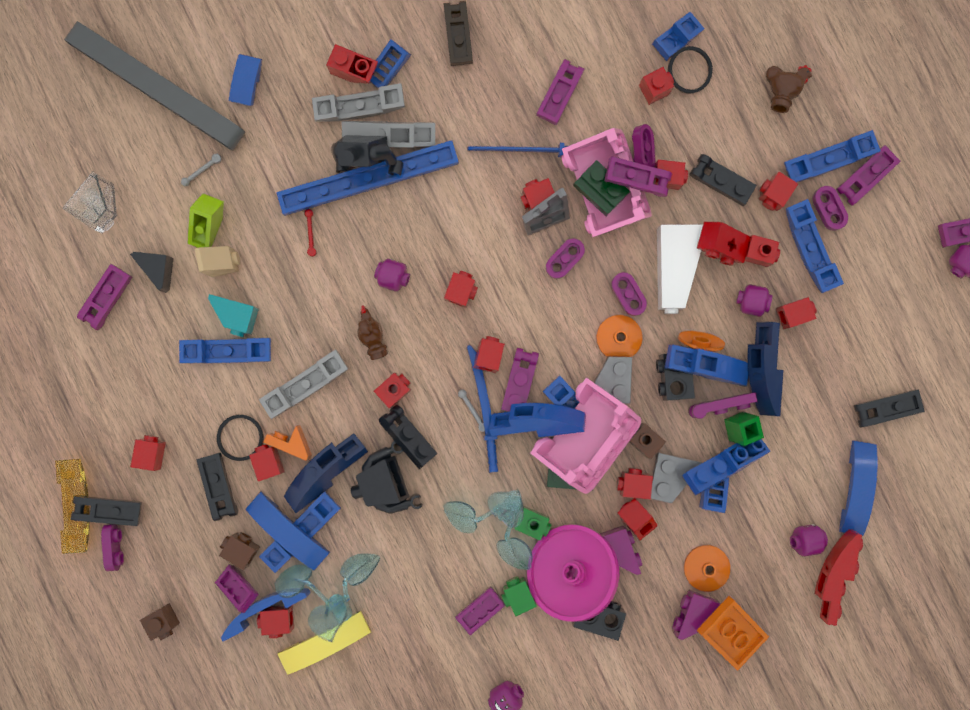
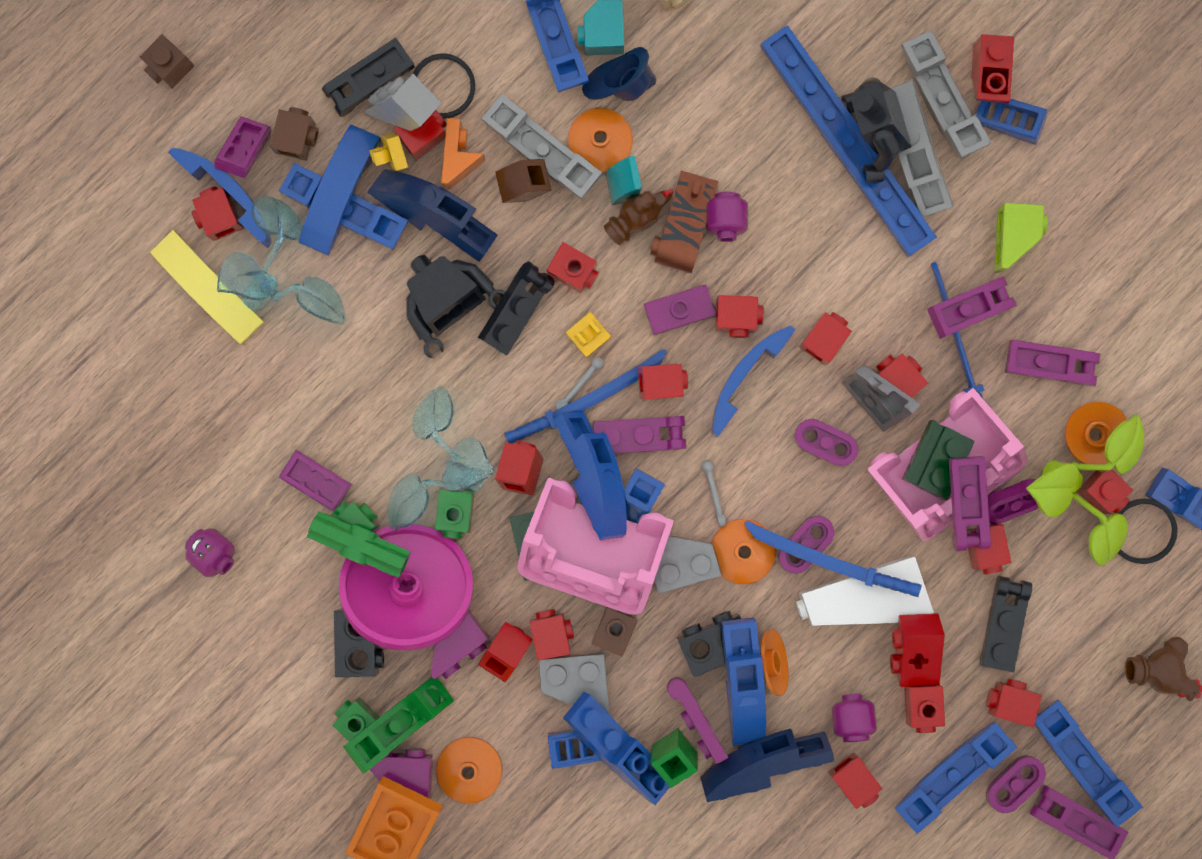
camera: 70 degrees right, 0 degrees up
(243, 469) = (403, 103): none -> light grey slope
(273, 488) = (390, 152): none -> yellow tile
(274, 314) = (623, 77): none -> dark blue piece
(311, 250) = (723, 98): red hinge -> none
(323, 339) = (605, 154): none -> orange dish
(323, 404) = (523, 180): none -> reddish brown brick
(345, 336) = (623, 180): none -> teal slope
(387, 304) = (685, 223): none -> copper door
(441, 393) = (588, 334): none -> yellow tile
(444, 326) = (679, 309): none -> magenta plate
(458, 34) = (1086, 198): dark brown plate -> none
(466, 86) = (1017, 231): none -> lime slope
(495, 235) = (826, 337): none -> red brick
(506, 133) = (970, 307): none -> magenta plate
(516, 469) = (519, 468): none -> red brick
(523, 319) = (724, 410): none -> blue slope
(534, 596) = (358, 544): none -> green piece
(555, 343) = (708, 466): none -> light grey hinge
(621, 68) = (1091, 416): none -> orange dish
(642, 111) = (1061, 480): none -> lime plant
(648, 281) = (868, 576): none -> blue sword
(653, 633) = (354, 718): none -> green brick
(664, 609) = (398, 724): none -> green slope

